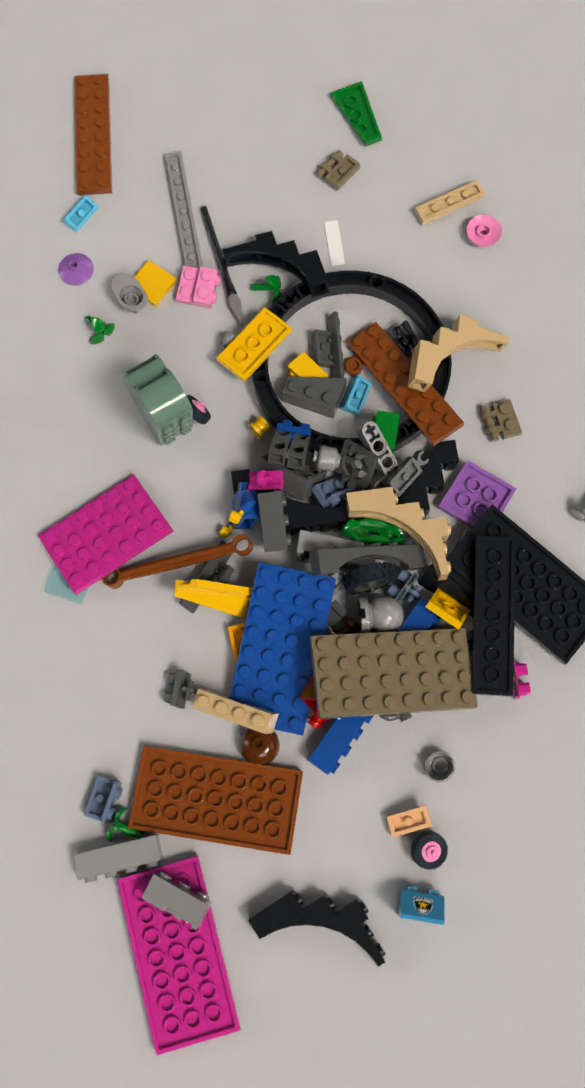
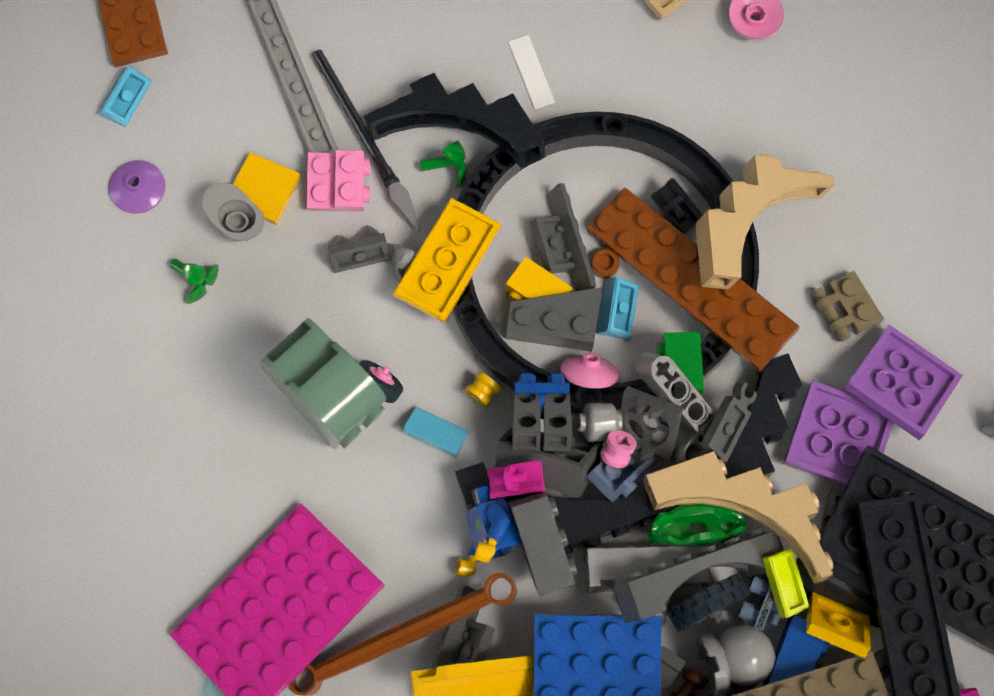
camera: 15 degrees left, 0 degrees up
(202, 331) = (361, 252): none -> dark grey tile
(225, 448) = (435, 432): none -> medium azure slope
(328, 427) = (589, 371): none -> bright pink dish
(334, 476) = (618, 449): none -> bright pink wheel
(420, 576) = (786, 583): none -> neon yellow tile
(524, 471) = (904, 382): none -> medium lavender plate

